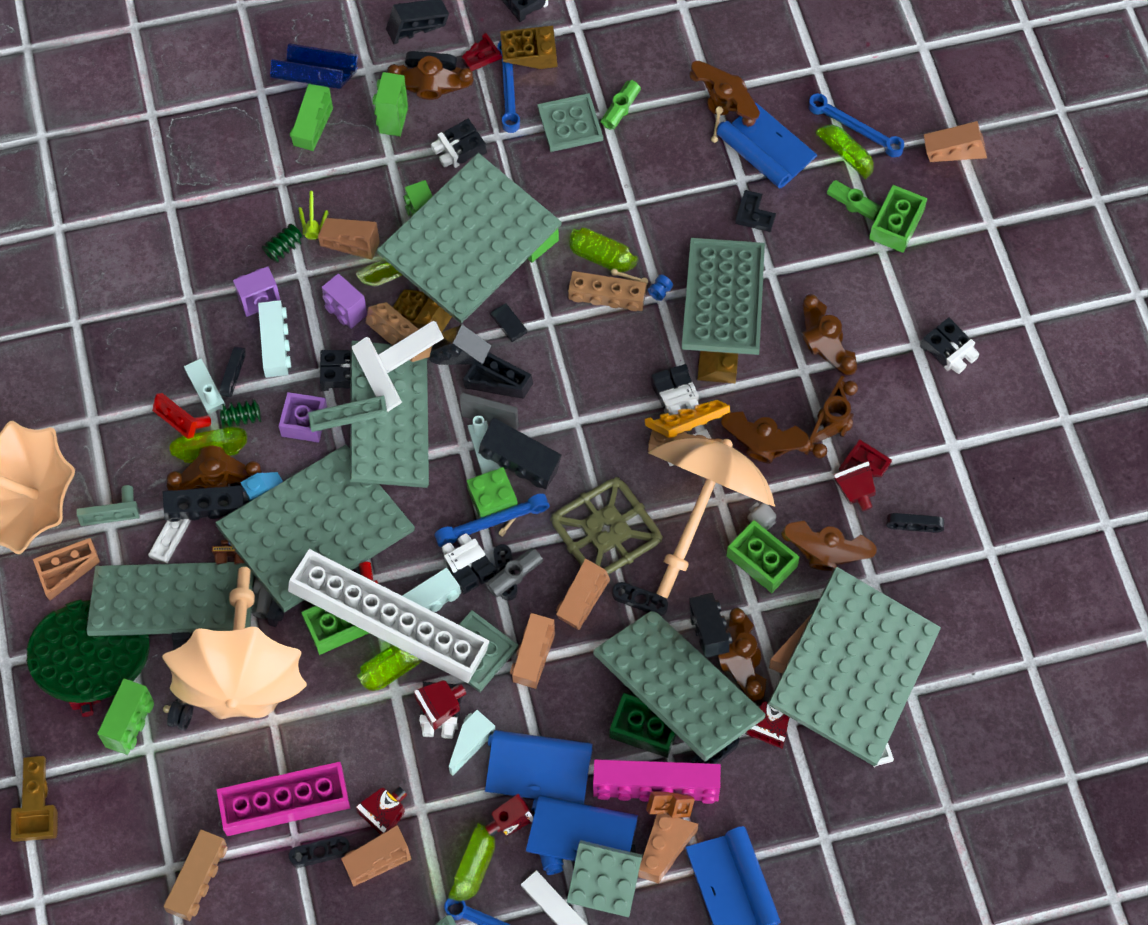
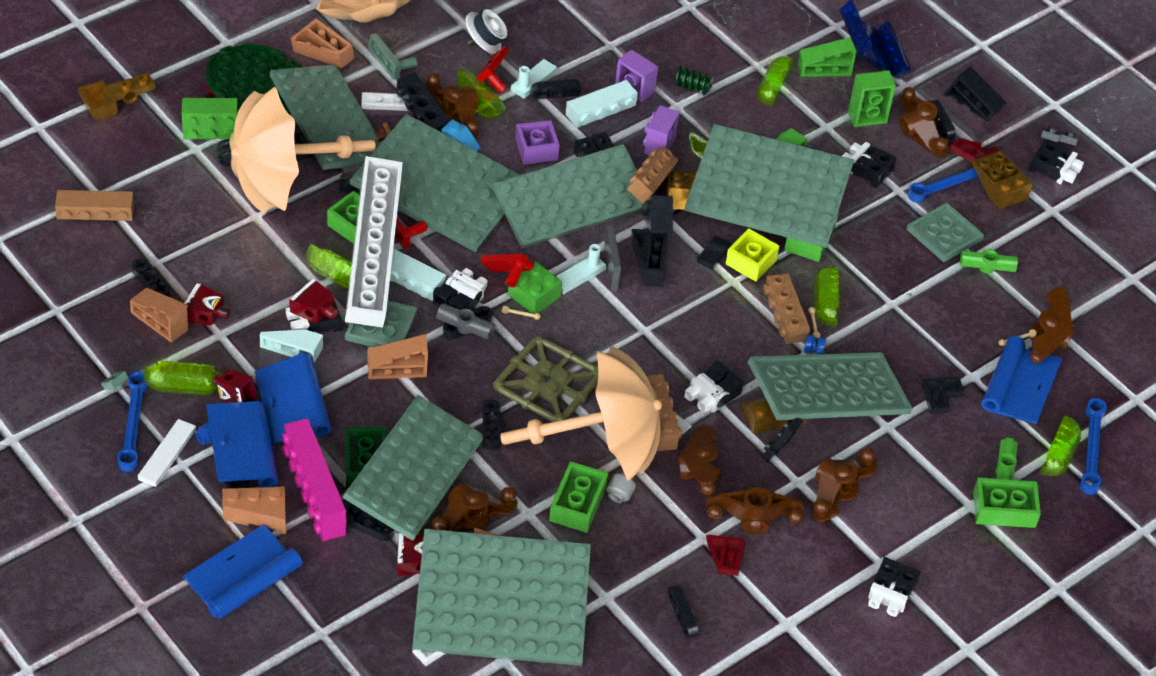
camera: 60 degrees right, 15 degrees down
(127, 401) = (486, 30): none -> white piece
(240, 413) = (519, 104): dark green piece -> none
(283, 798) = (184, 237): dark pink brick -> none
(310, 175) = (774, 79): none -> clear neon green brick
(312, 228) = (722, 95): lime plant -> none
(347, 413) = (550, 160): sand green tile -> none
(350, 236) = (727, 112): nougat wedge -> none
(376, 372) = (598, 166): white tile -> none
(411, 346) = (631, 173): white tile -> none
(473, 495) = (508, 263): none -> red piece
(519, 454) = (580, 290): black slope -> none
(534, 291) = (752, 255): none -> neon yellow brick
(534, 505) = (542, 320): blue piece -> none
(583, 594) = (470, 374): nougat wedge -> none
(604, 878) = (204, 468): sand green plate -> none
(670, 803) = (295, 494): dark orange slope -> none
(687, 418) = (687, 396): light orange wing -> none
(709, 625) = (482, 467): black wedge -> none
(762, 364) = (782, 437): none -> black plate
(828, 546) = (614, 539): reddish brown piece -> none
(857, 485) = (695, 550): dark red torso -> none
(956, 143) = (1127, 529): nougat wedge -> none

